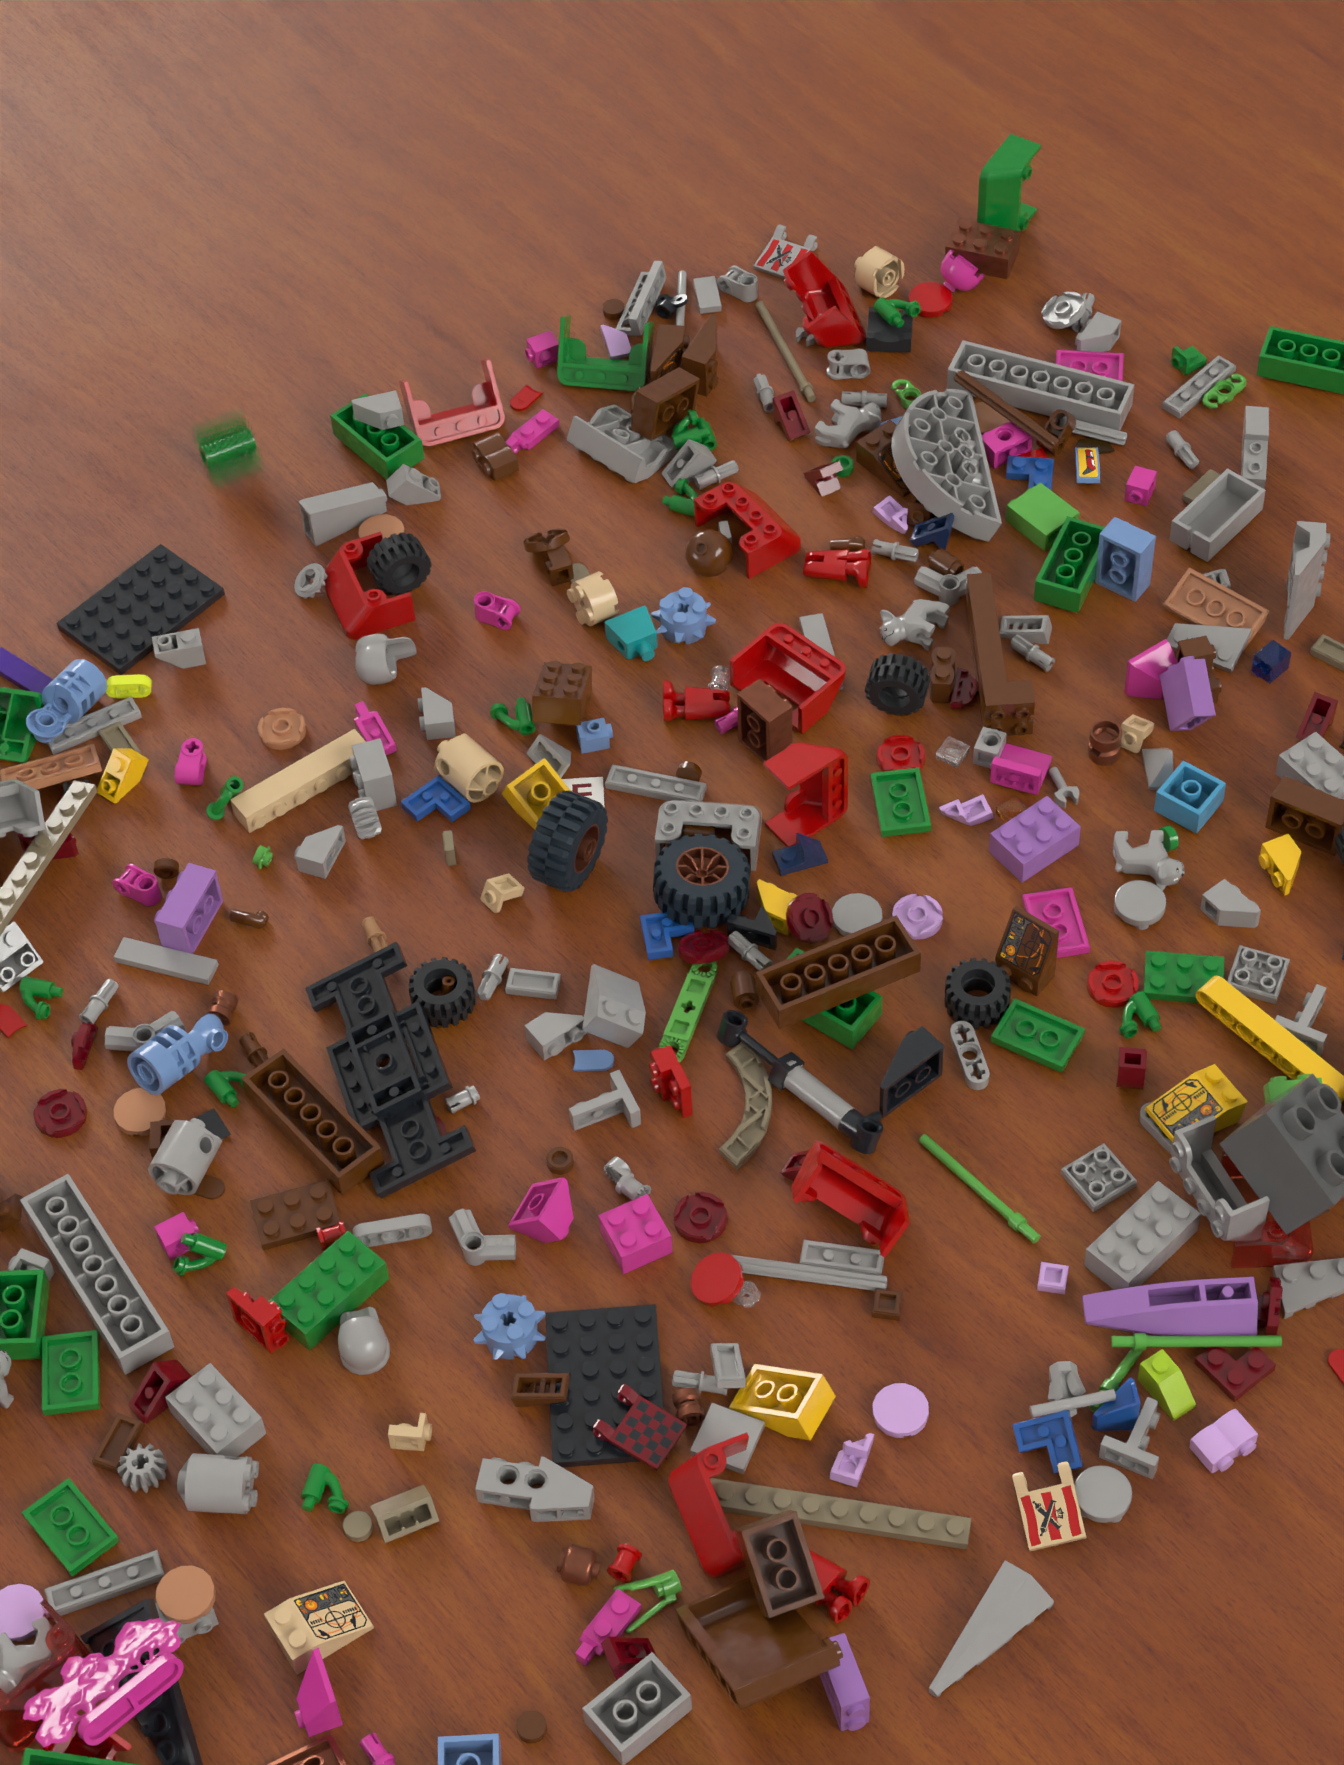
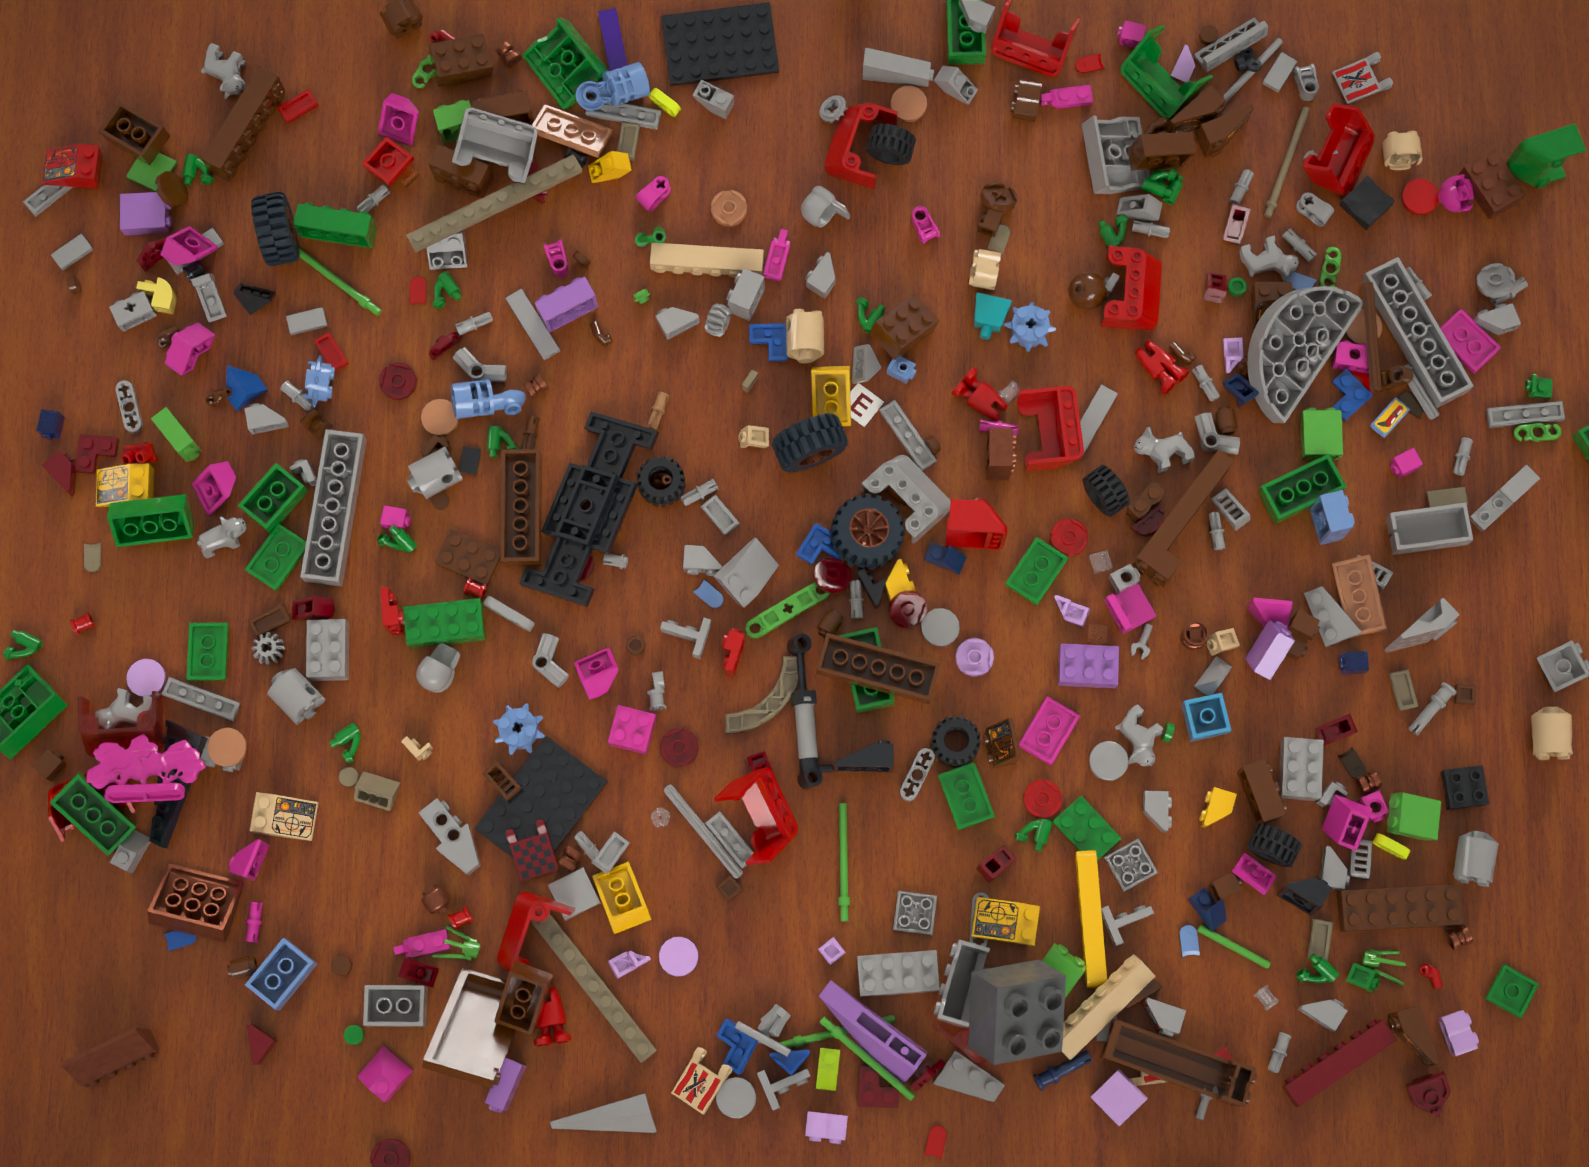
camera: 40 degrees right, 25 degrees up
(717, 1279) = (650, 796): red tile -> none
(888, 310) = (1372, 195): green plant -> none

